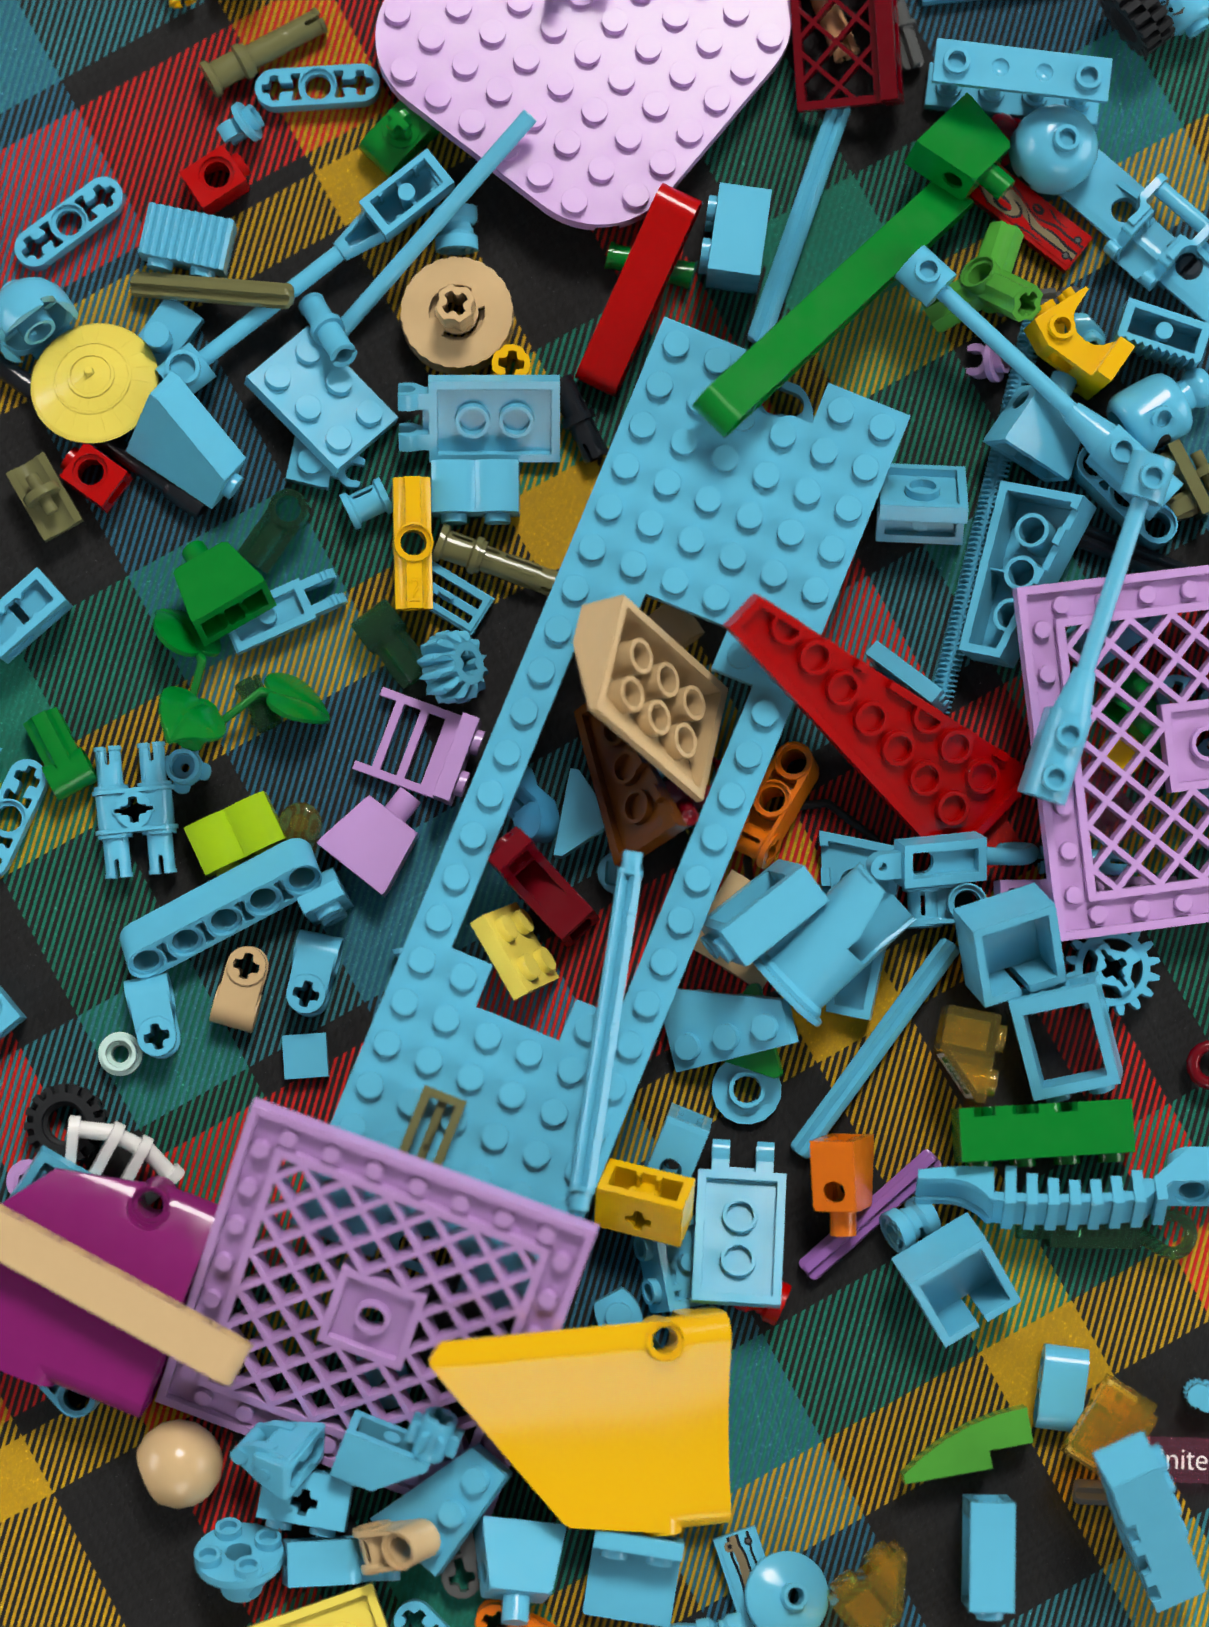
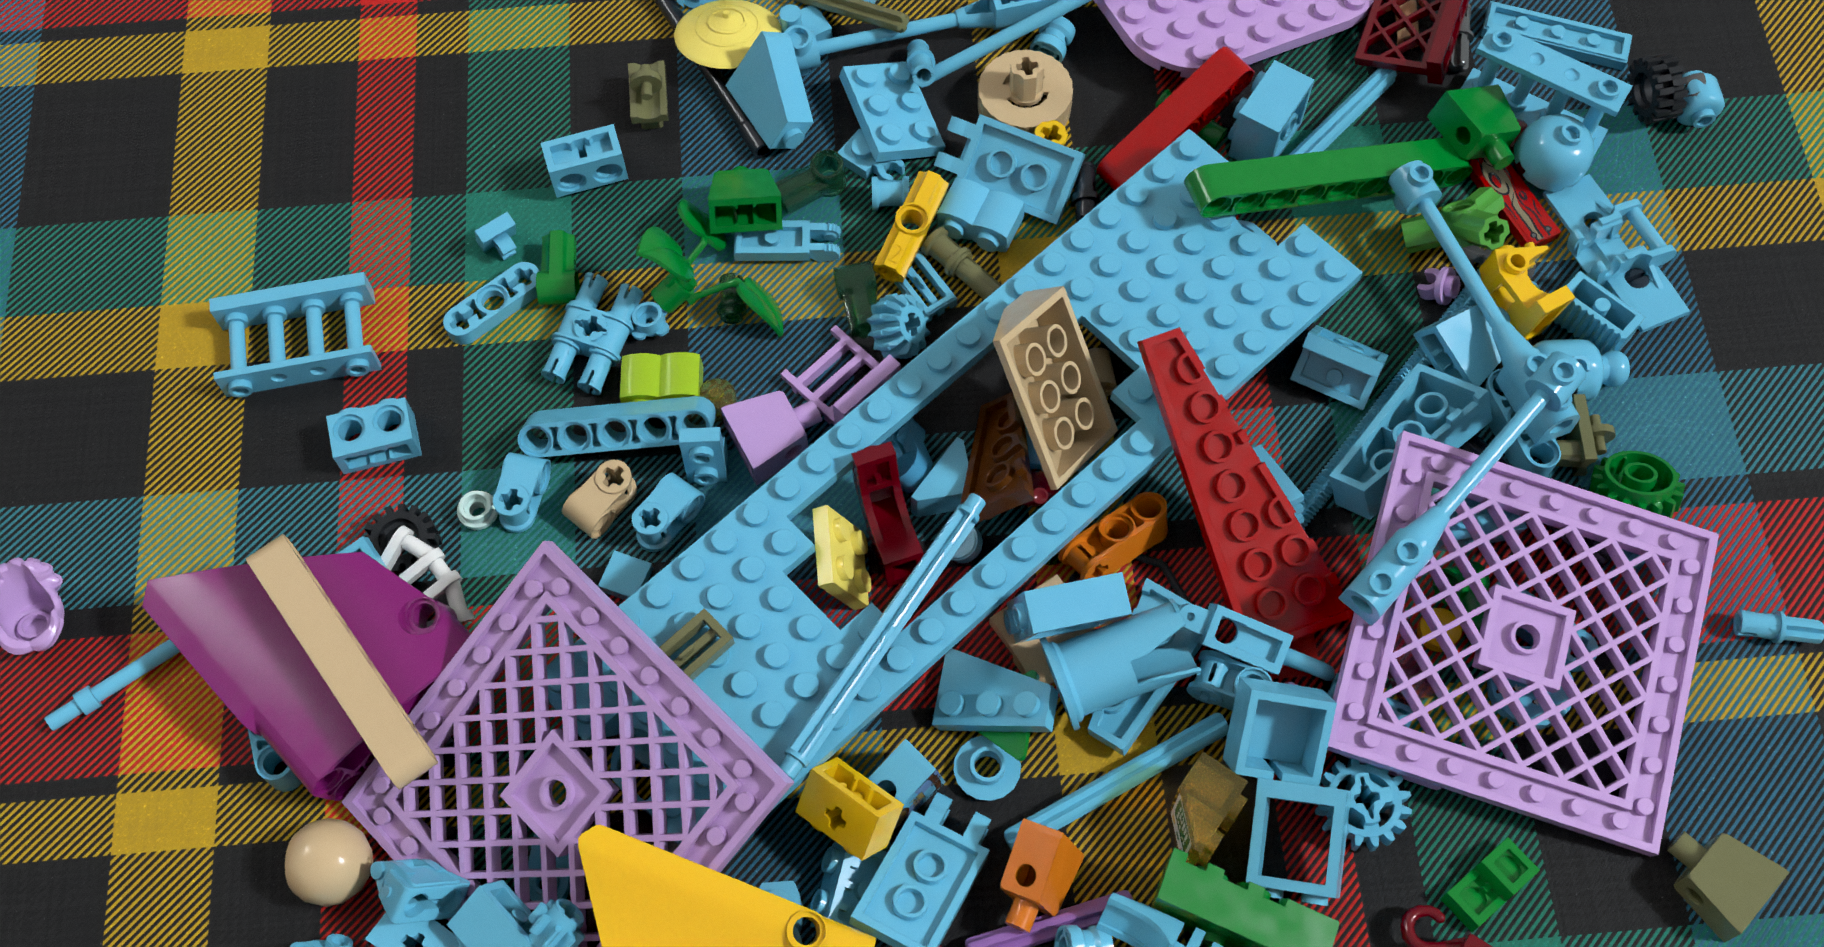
camera: 25 degrees right, 20 degrees down
(108, 489) = (702, 104): red brick -> none

